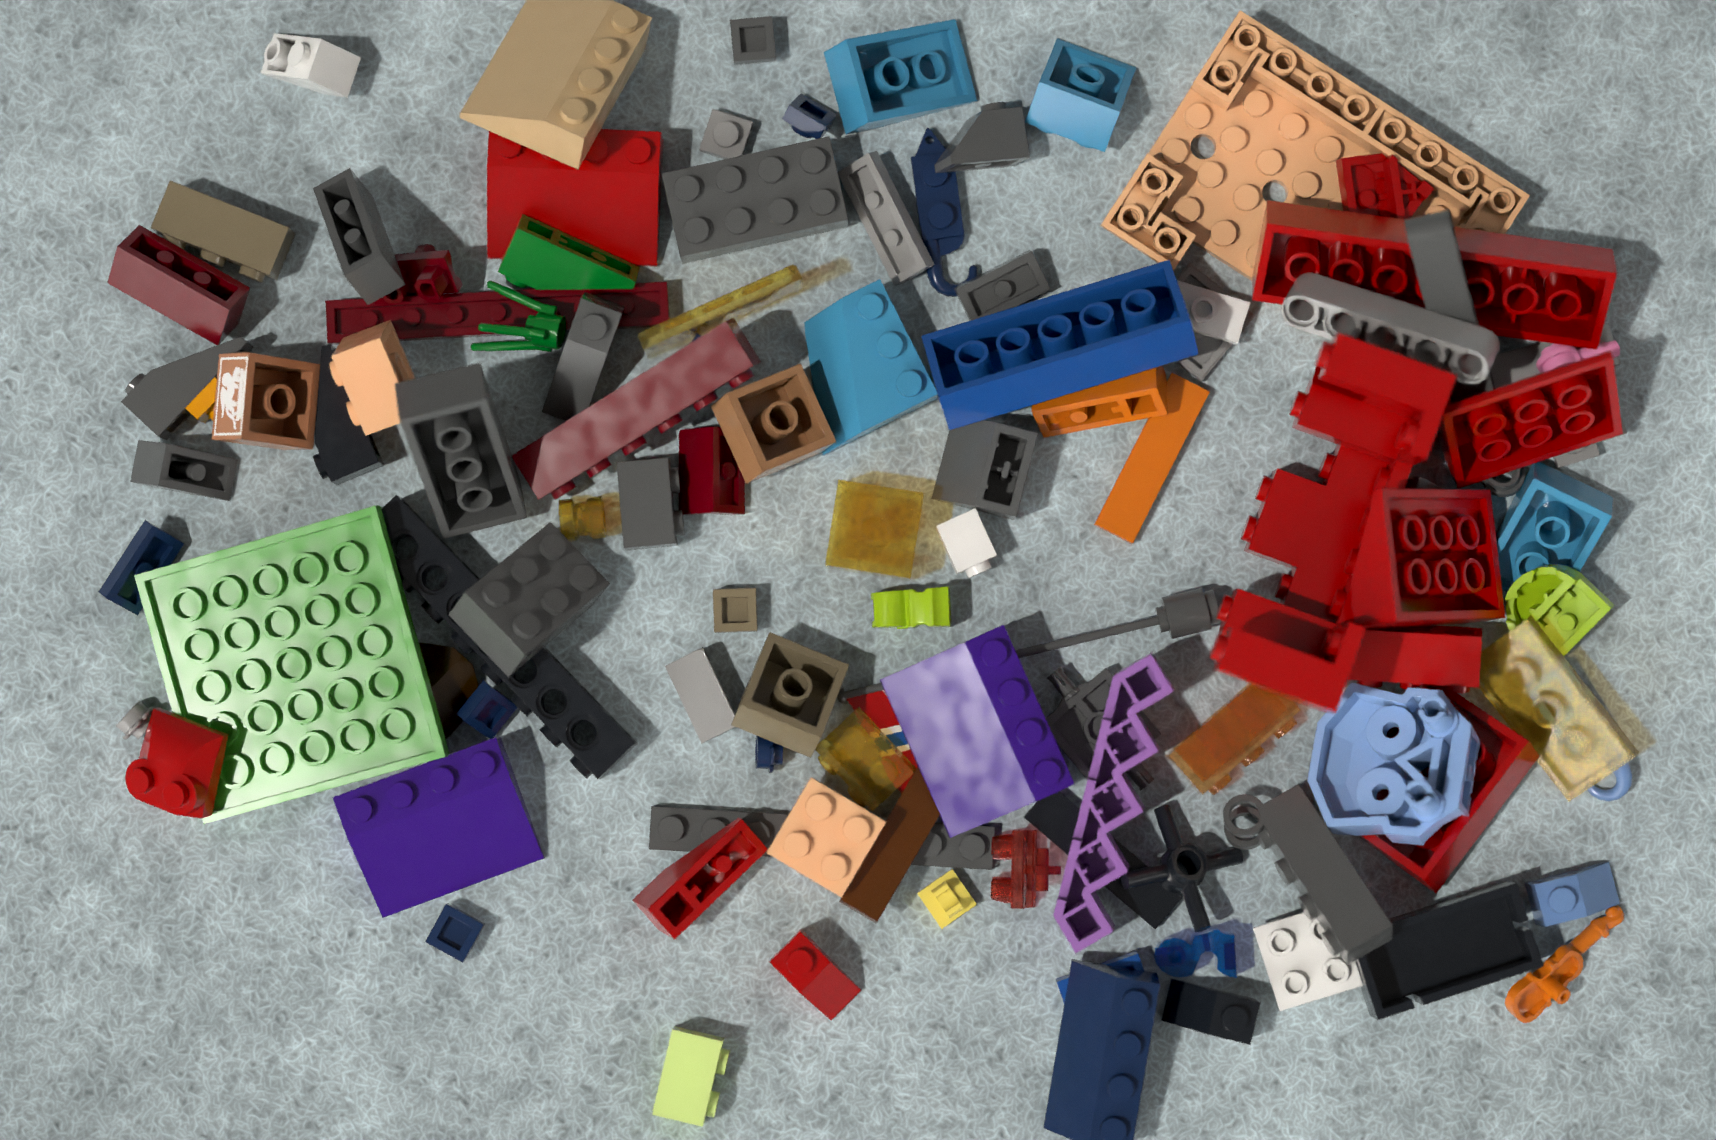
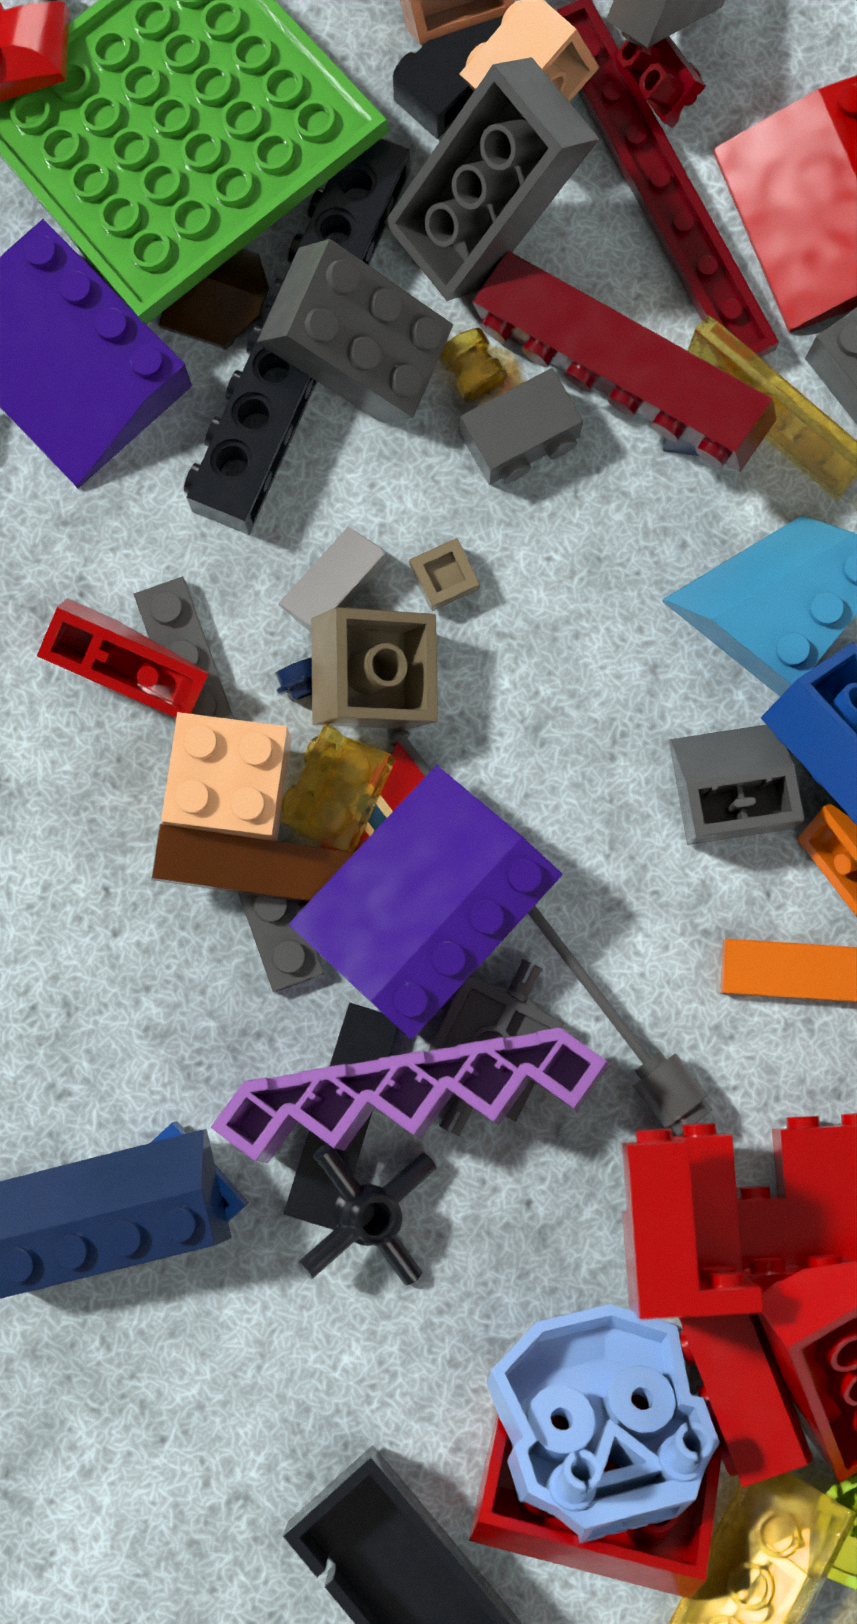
camera: 65 degrees right, 5 degrees down
(487, 710) = (213, 351): dark blue plate -> none
(543, 330) = (665, 228): green plant -> none
(557, 261) = (745, 203): green slope -> none
(583, 356) = (662, 280): dark grey slope -> none
(709, 474) = (590, 484): dark red panel -> none
(773, 423) = (676, 519): medium nougat brick -> none
(814, 974) = (66, 837): red slope -> none
(874, 530) = (605, 685): clear yellow brick -> none
(911, 608) = (535, 768): lime leg -> none
(946, 898) = (217, 954): light yellow tile -> none
(967, 543) = (636, 799): white brick -> none
(1028, 869) = (289, 1032): clear red hips -> none
(1180, 958) = (261, 1258): clear blue leg -> none
(1211, 1011) = (213, 1324): black slope -> none
(1232, 737) = (549, 1209): clear orange brick -> none
(1300, 962) = (326, 1414): white hinge -> none
(1316, 866) = (436, 1381): dark grey hinge -> none

